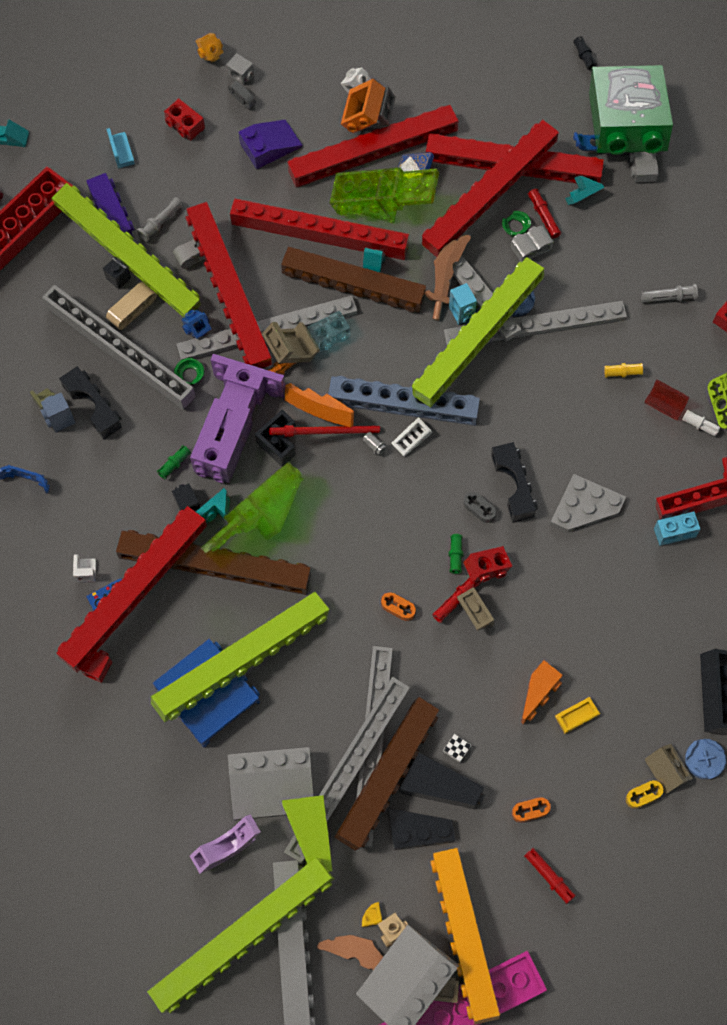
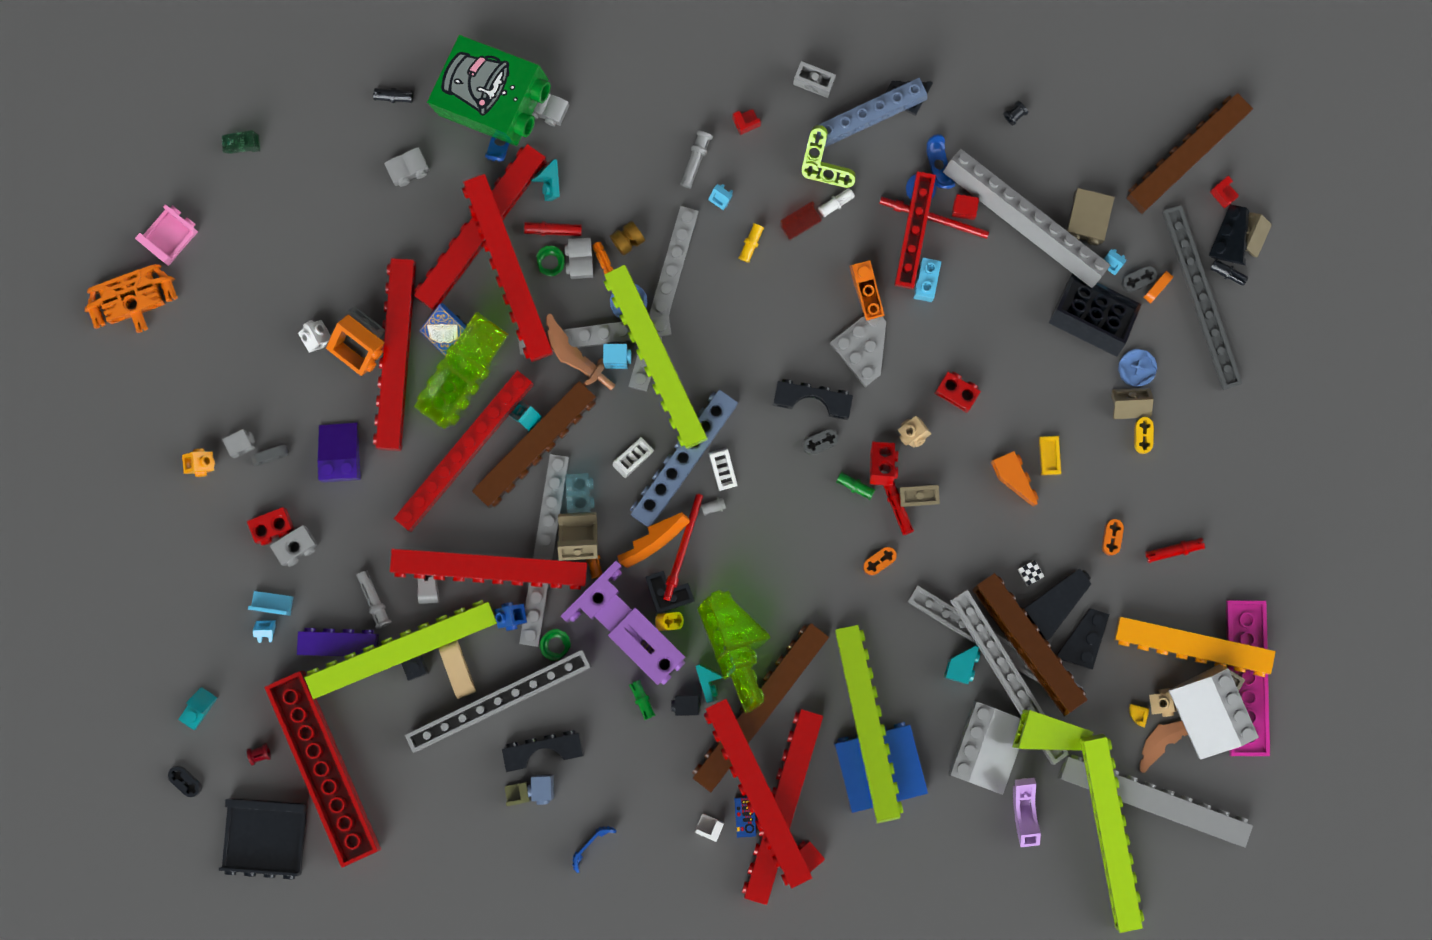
camera: 70 degrees left, 15 degrees up
(96, 151) = (264, 629): none -> medium azure tile
(142, 621) = (786, 795): none -> red brick
(185, 143) = (282, 547): none -> light grey brick
(257, 447) = (669, 621): none -> yellow beam
(337, 722) = (961, 666): none -> teal slope
(378, 352) = (622, 458): none -> white slope
(532, 86) = (407, 167): none -> light grey brick
(532, 579) = (914, 432): none -> tan brick
(544, 259) = (602, 257): none -> orange axle
(569, 270) = (627, 238): none -> pearl gold wheel
(585, 602) = (955, 396): none -> red brick
(638, 480) = (867, 289): none -> orange slope
(649, 327) = (720, 196): none -> medium azure tile

